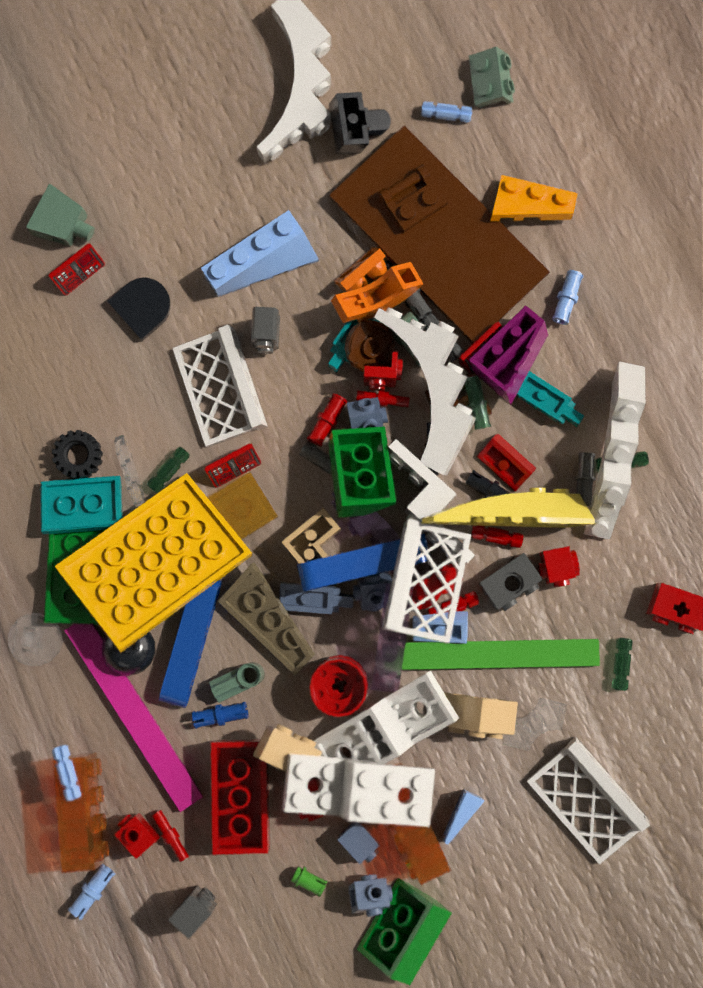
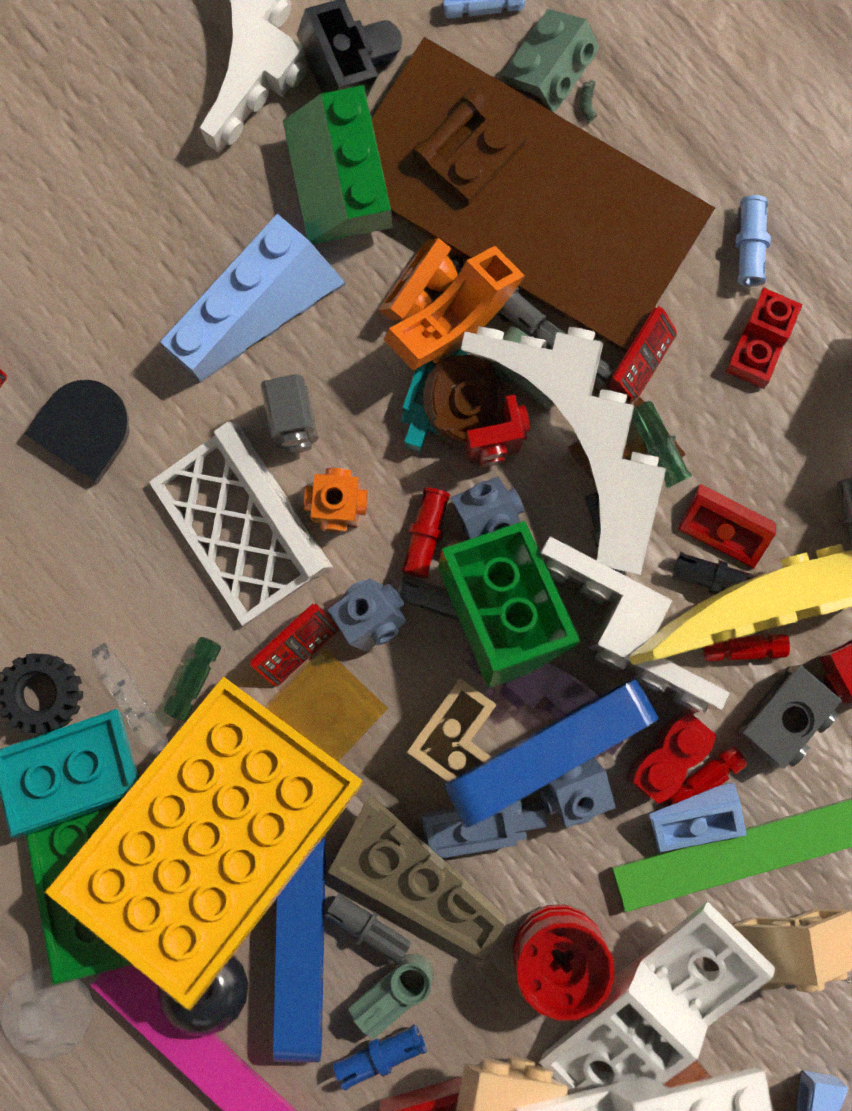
camera: 15 degrees left, 0 degrees up
(232, 639) = (367, 928): none -> dark grey axle
(279, 396) = (342, 515): none -> orange brick
(281, 458) = (369, 614): none -> sand blue brick
(331, 191) = (337, 166): none -> green slope
(384, 398) = (508, 475): red bar -> none
(389, 652) = (628, 860): slope -> none
(403, 575) = (625, 768): white fence -> none
(478, 157) = (552, 58): none -> sand green bracket
(491, 193) = (589, 116): none -> sand green leg
(510, 353) = (691, 352): magenta wedge -> none
(528, 199) = (652, 103): light orange wing -> none
(549, 400) = (766, 409): teal hinge -> none
(558, 356) = (763, 338): none -> red slope

